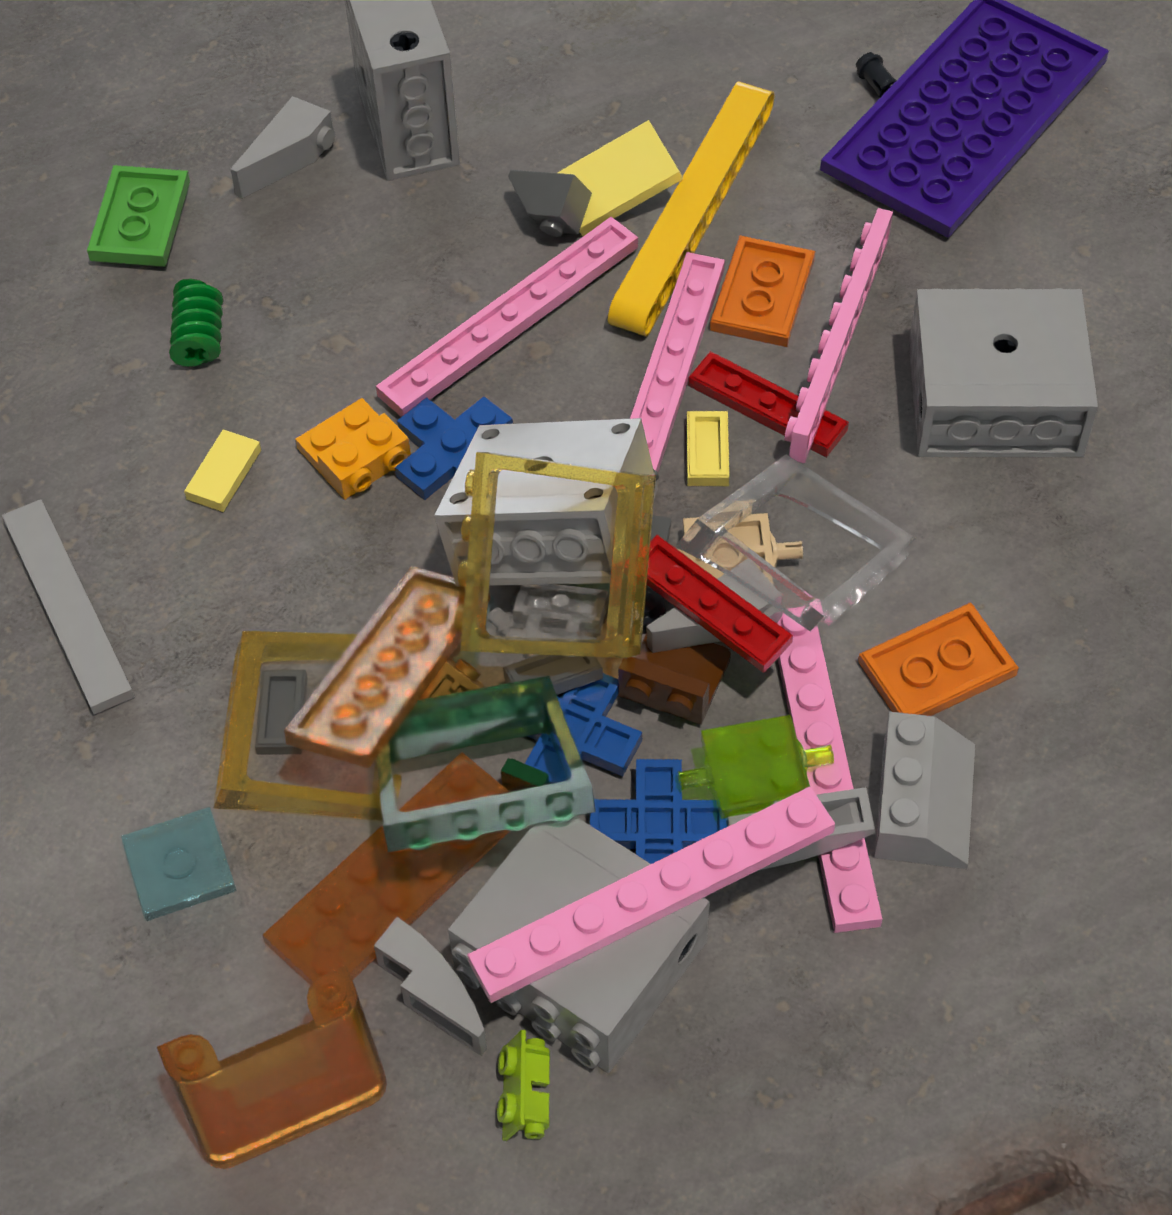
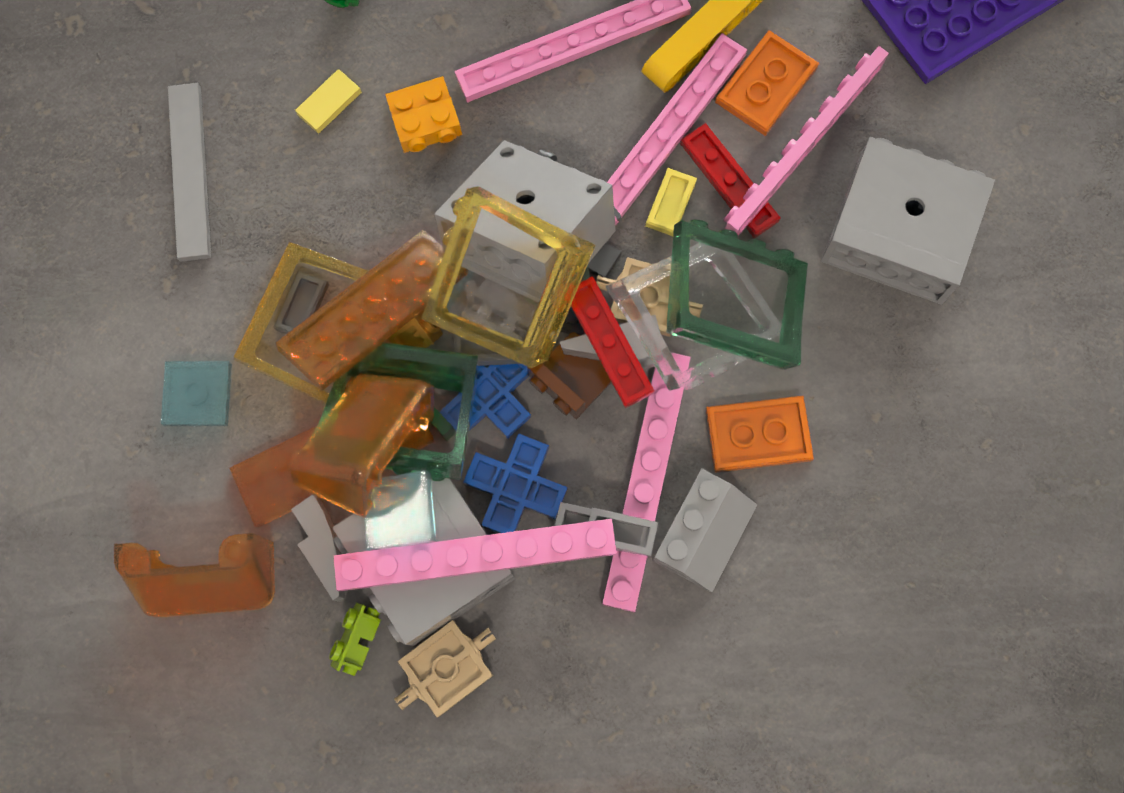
camera: 25 degrees right, 20 degrees up
(441, 442) = (489, 131): blue plate -> none
(446, 805) = (360, 439): none -> clear orange windscreen
(532, 869) = (401, 512): none -> clear light blue tile
(664, 1078) = (445, 668): none -> tan plate
(754, 765) = (594, 472): clear neon green plate -> none
(918, 553) = (685, 325): none -> clear green windscreen

